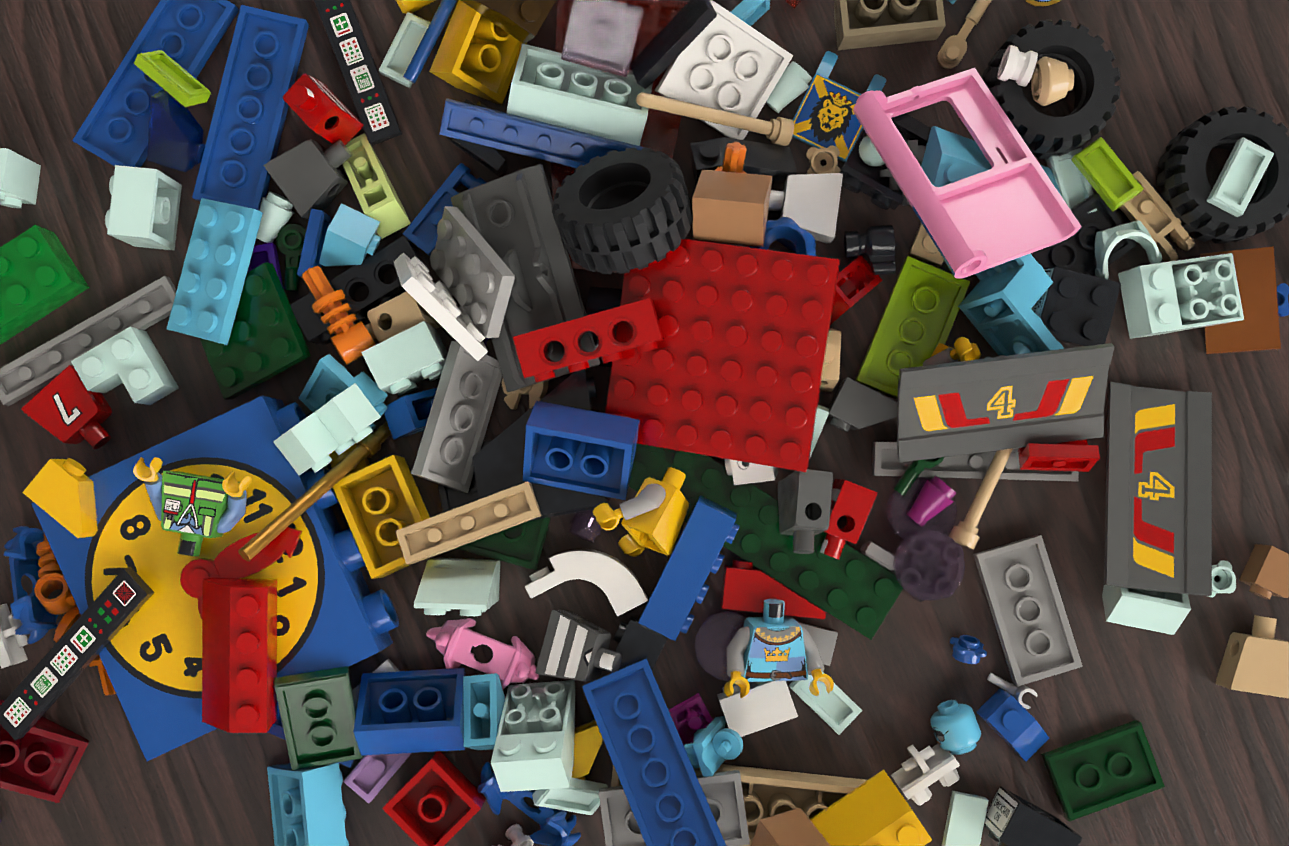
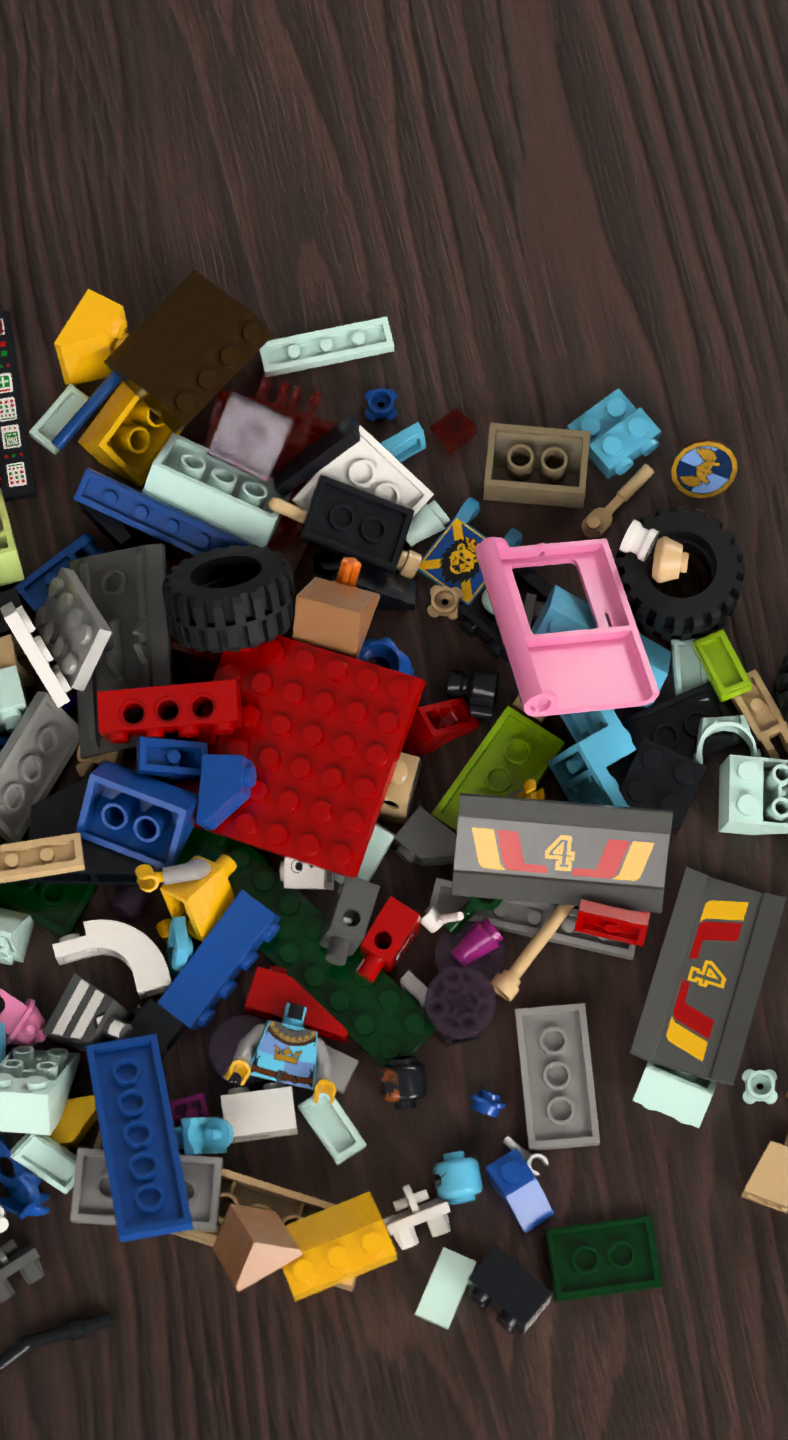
camera: 10 degrees right, 15 degrees down
(601, 386) = (173, 759): none -> blue slope
(647, 565) = (178, 946): none -> medium azure plate
(659, 405) = (223, 787): none -> blue slope
(726, 103) = (356, 524): none -> black tile
(810, 202) = (421, 635): white torso -> none
(886, 486) = (434, 919): none -> white hand
(886, 646) = (403, 1081): none -> black head

